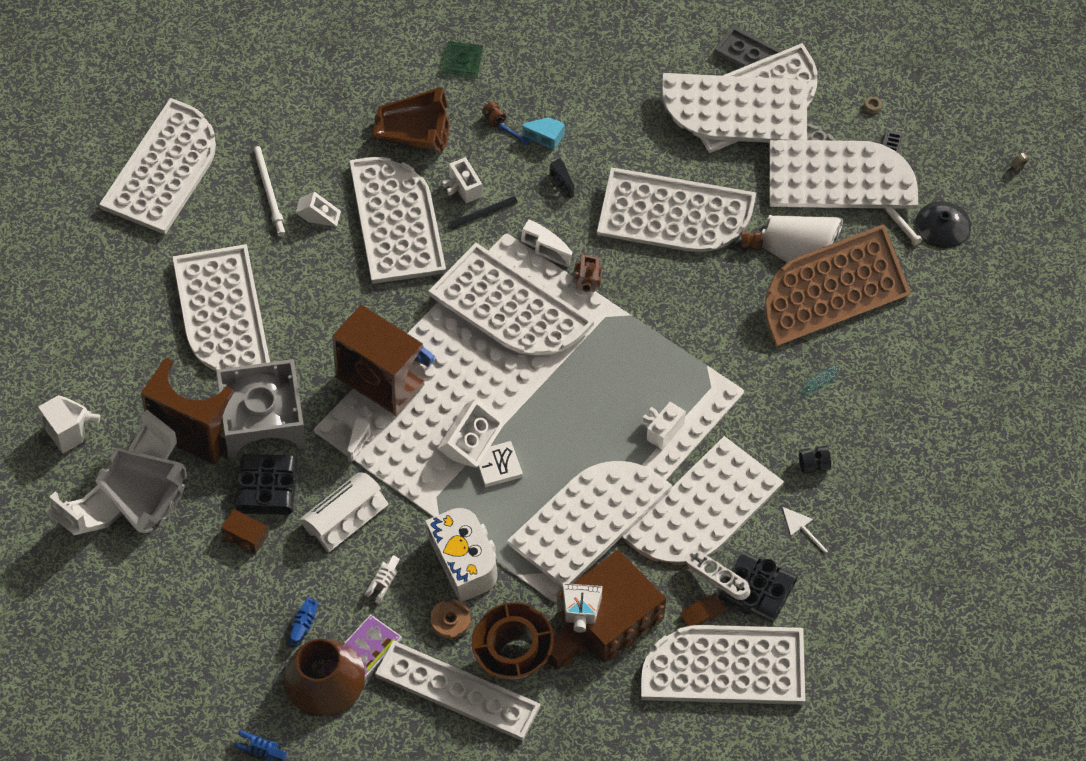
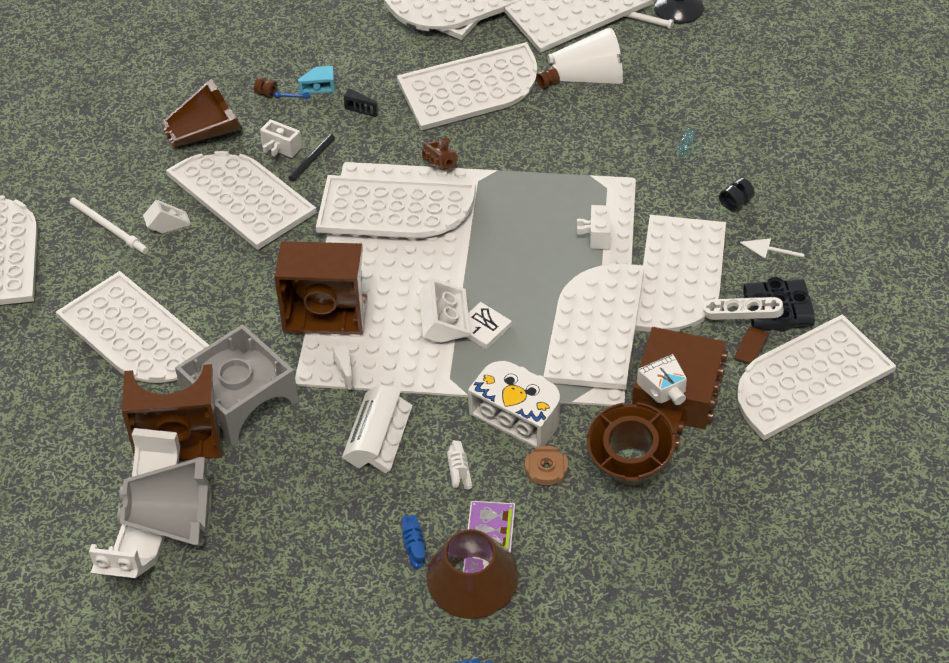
camera: 30 degrees left, 10 degrees down
(65, 421) = (47, 492): white piece -> none
(244, 531) = (297, 494): reddish brown brick -> none
(279, 497) = (287, 445): black connector -> none
(458, 690) = (602, 519): white plate -> none
(463, 59) = (206, 64): clear green tile -> none
(546, 243) = (386, 152): white slope -> none
(833, 285) = (641, 73): medium nougat plate -> none

